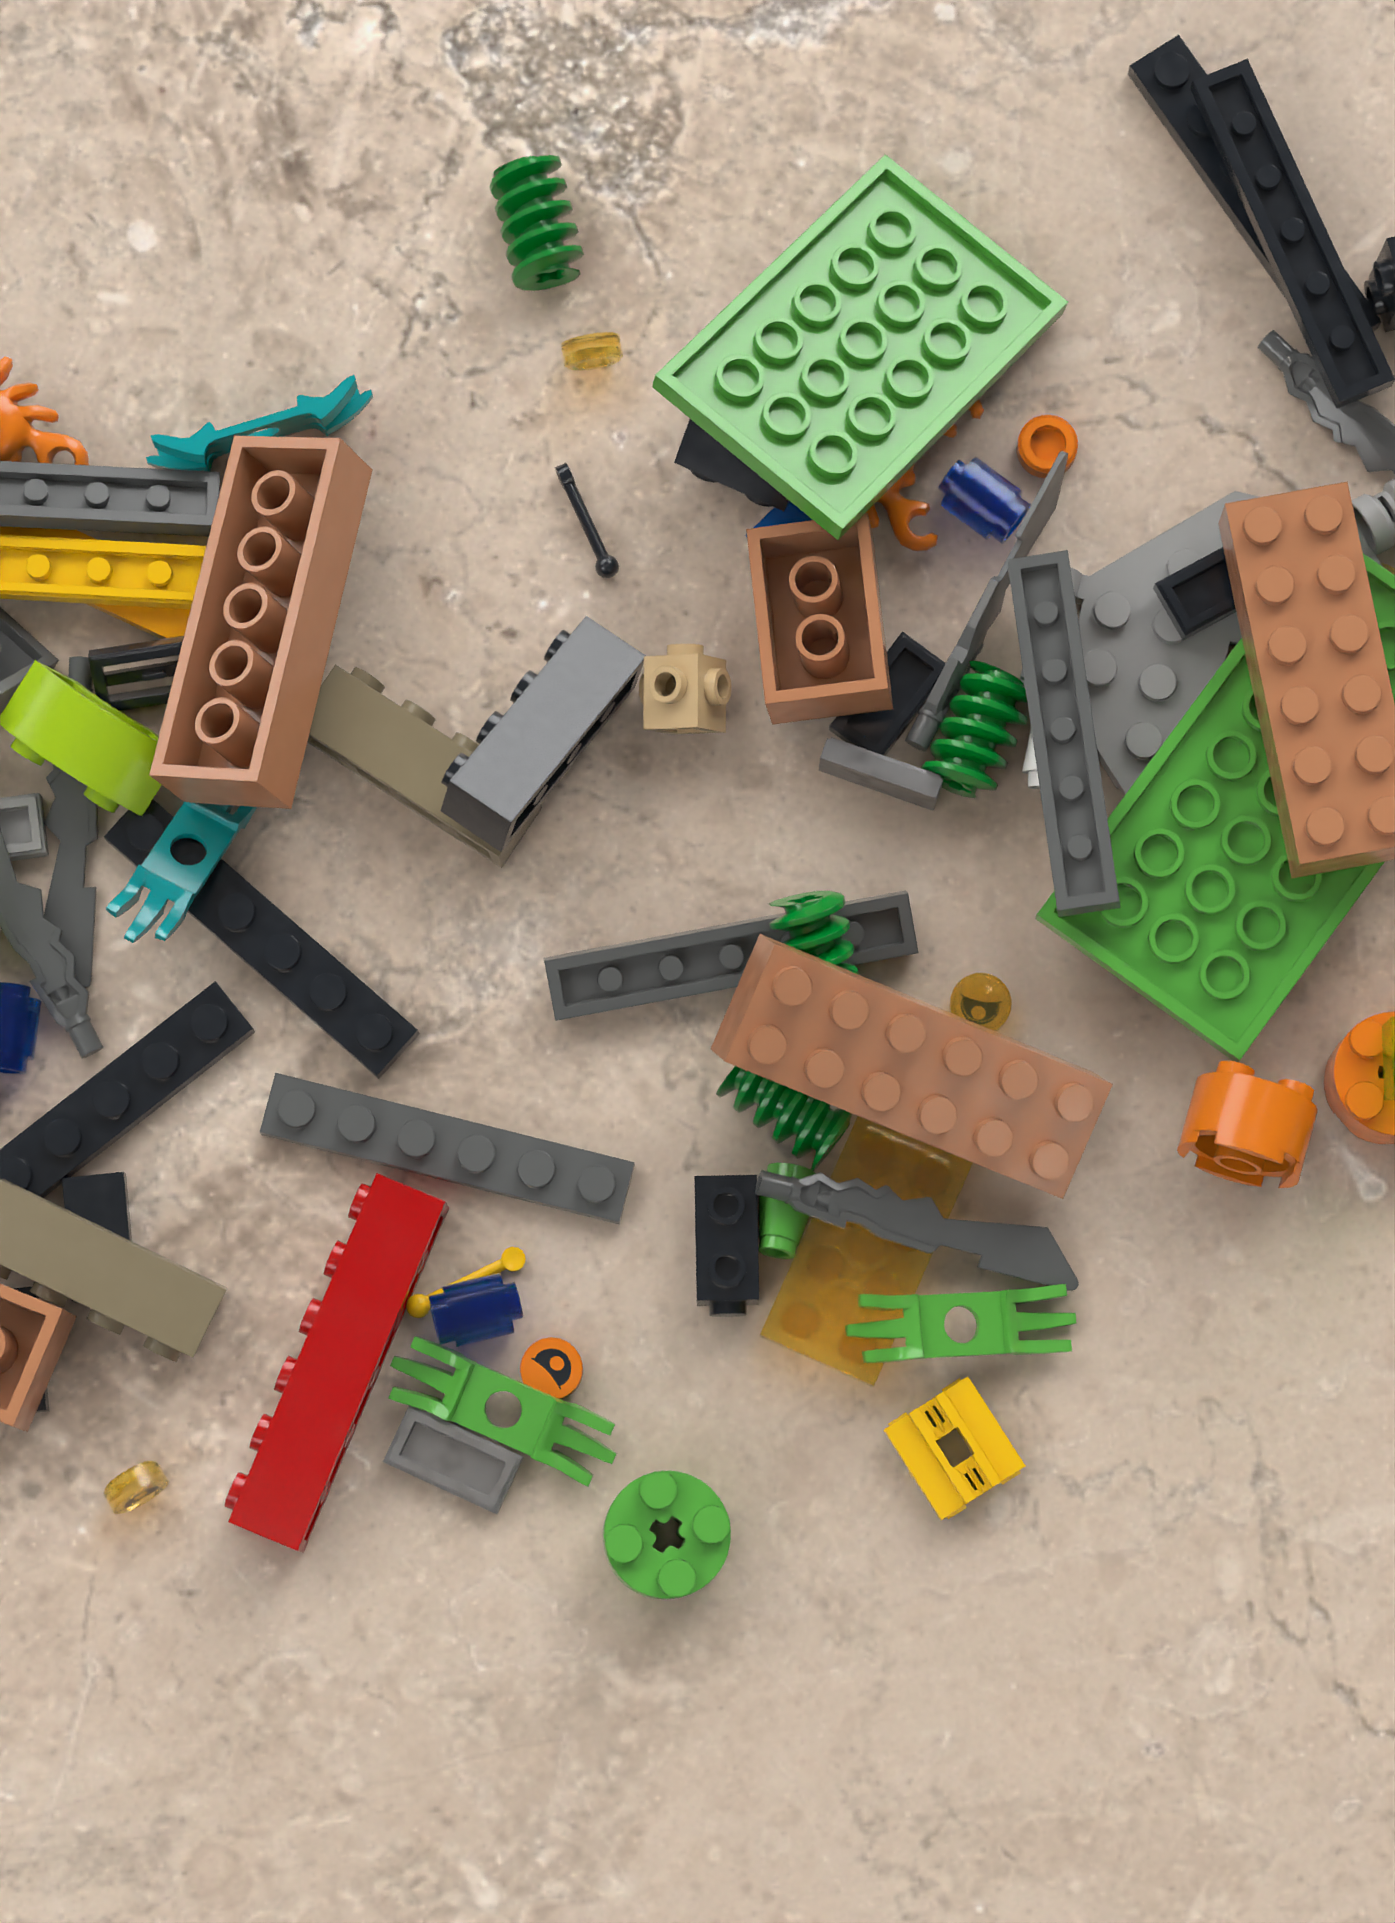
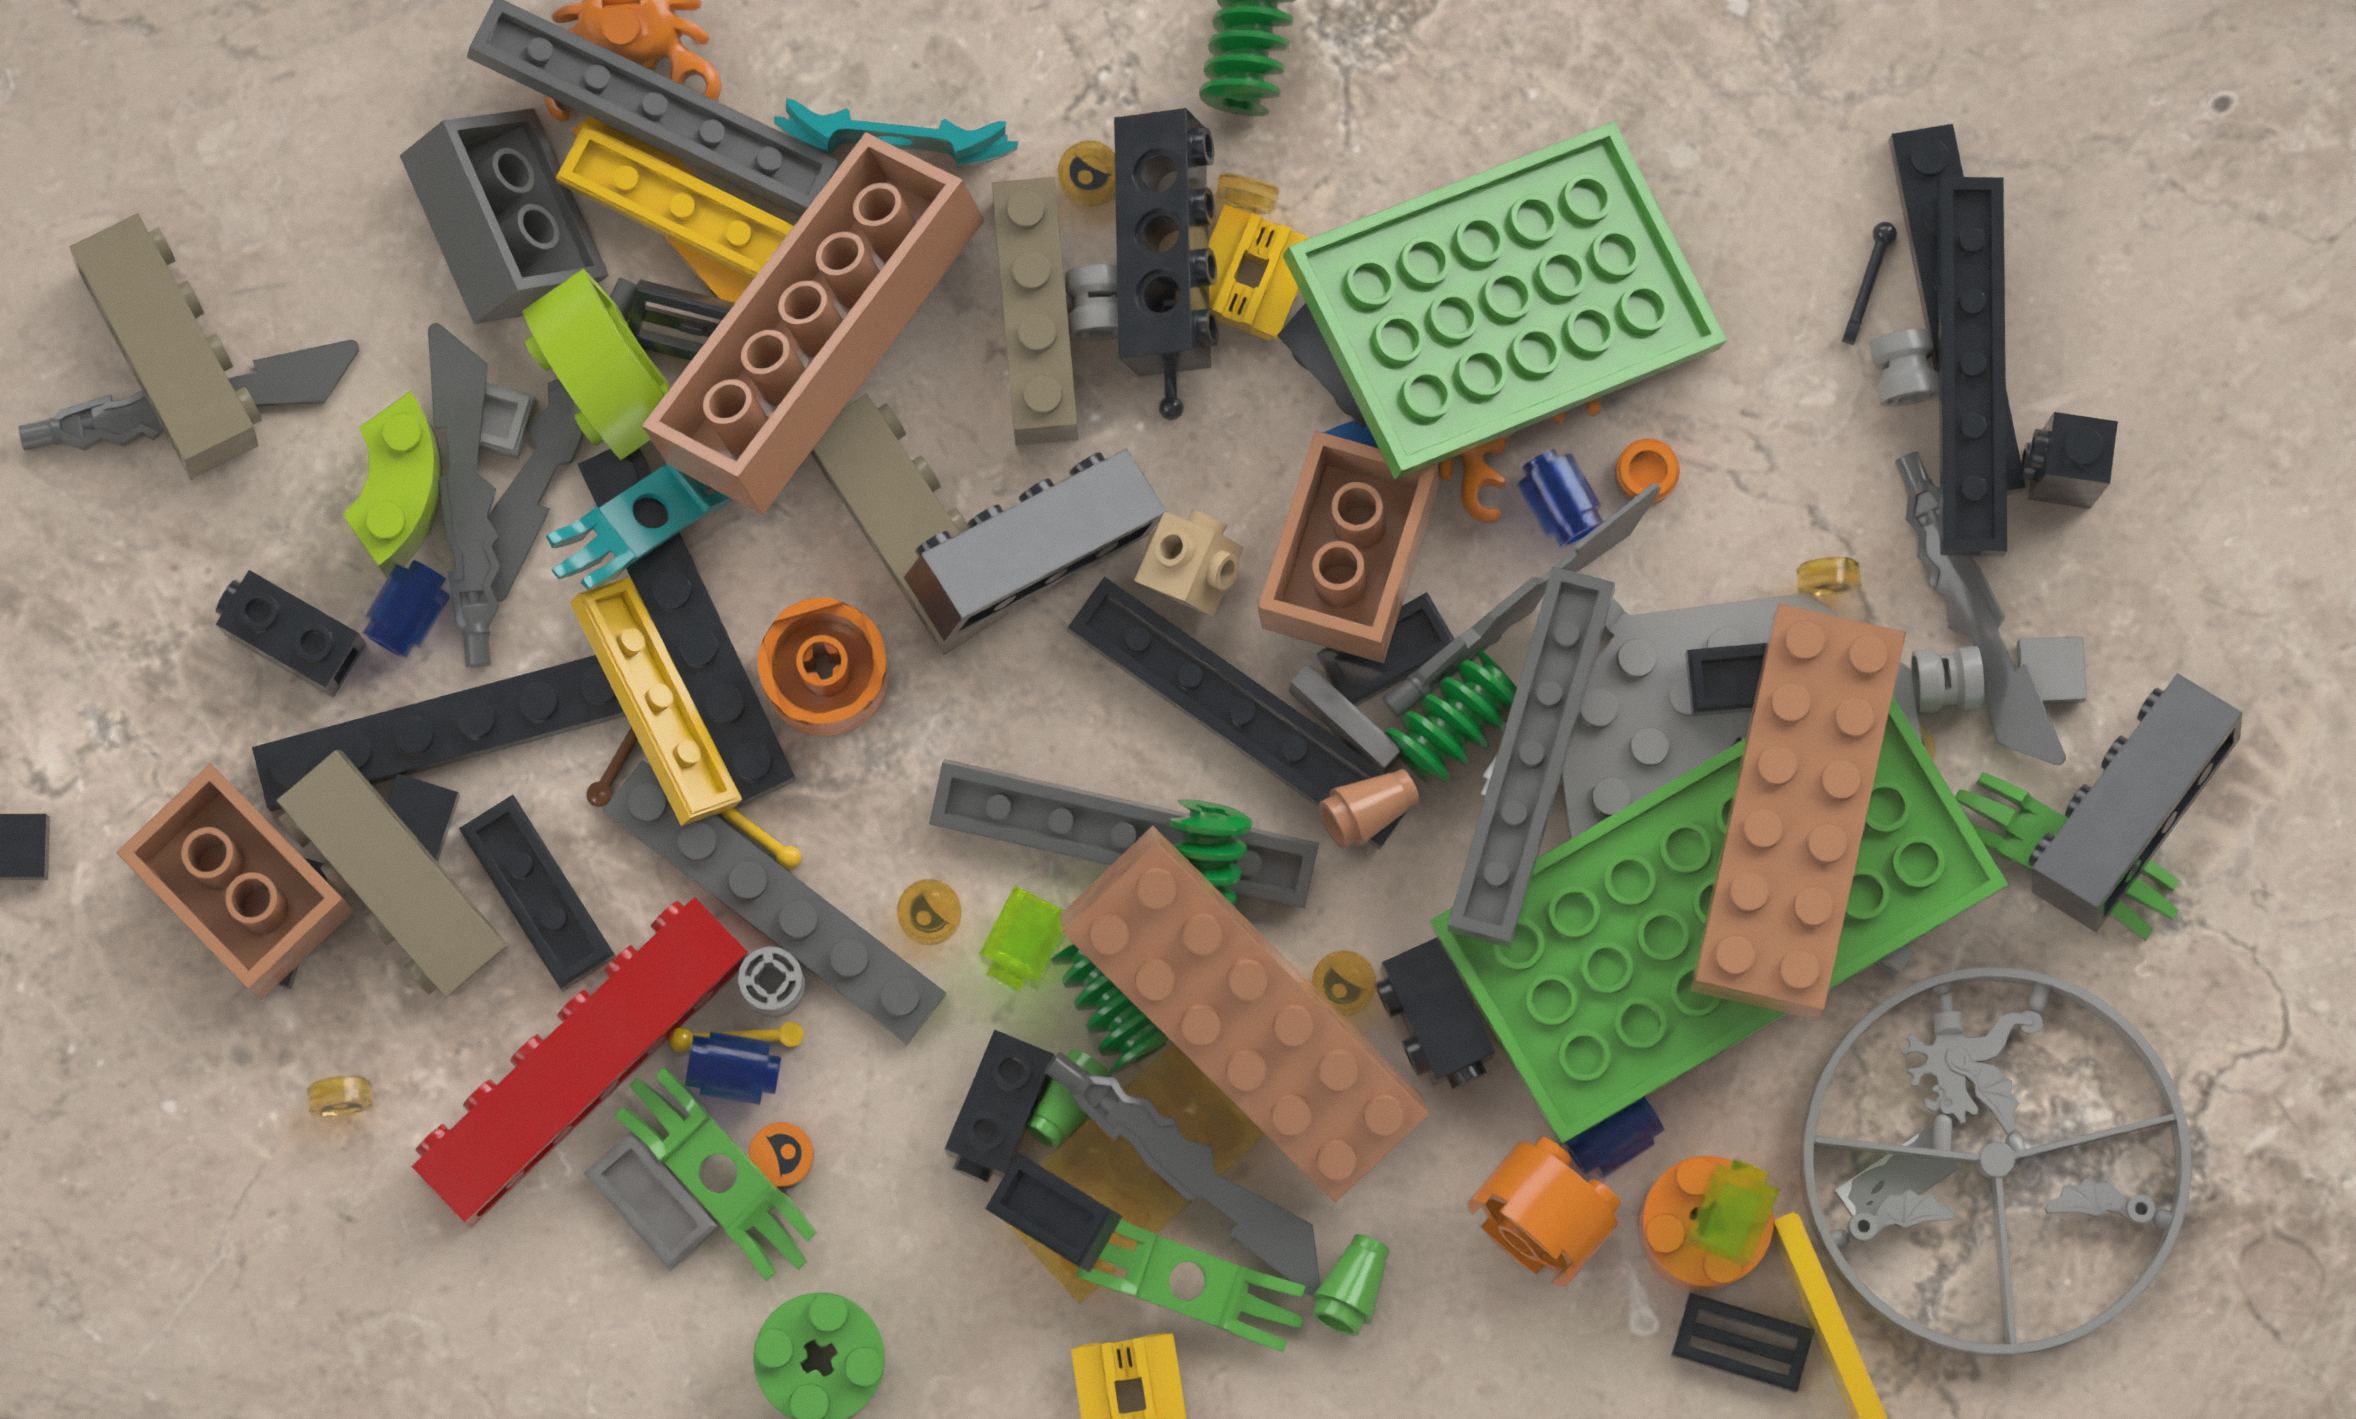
camera: 20 degrees right, 0 degrees up
(233, 1230) = (537, 892): none -> black tile
(250, 1118) = (599, 792): none -> reddish brown hinge
(265, 1015) = (655, 701): none -> yellow tile
(344, 1079) = (787, 856): none -> yellow hinge
(407, 887) = (789, 652): none -> orange brick
(445, 392) = (1087, 173): none -> clear yellow tile
(451, 531) = (1035, 311): none -> dark tan brick
(482, 1228) = (775, 992): none -> light grey wheel
(489, 349) = (1145, 152): none -> black brick
(503, 500) = (1093, 302): none -> light grey wheel
(588, 1098) = (929, 912): none -> clear yellow tile
(598, 440) = (1270, 303): none -> yellow piece
(684, 1087) = (1022, 941): none -> clear neon green brick
(787, 805) = (1220, 697): none -> black plate
(819, 1314) = (1054, 1212): none -> black tile
(935, 840) = (1366, 807): none -> nougat cone
(1075, 995) = (1438, 1015): none -> black brick
(1106, 1267) = (1352, 1287): none -> bright green cone
(1161, 156) = (1883, 235): none -> black hinge
(1232, 260) = (1906, 371): none -> light grey wheel
(1246, 469) = (1828, 576): none -> clear yellow tile
(1282, 1038) = (1616, 1140): none -> clear blue brick

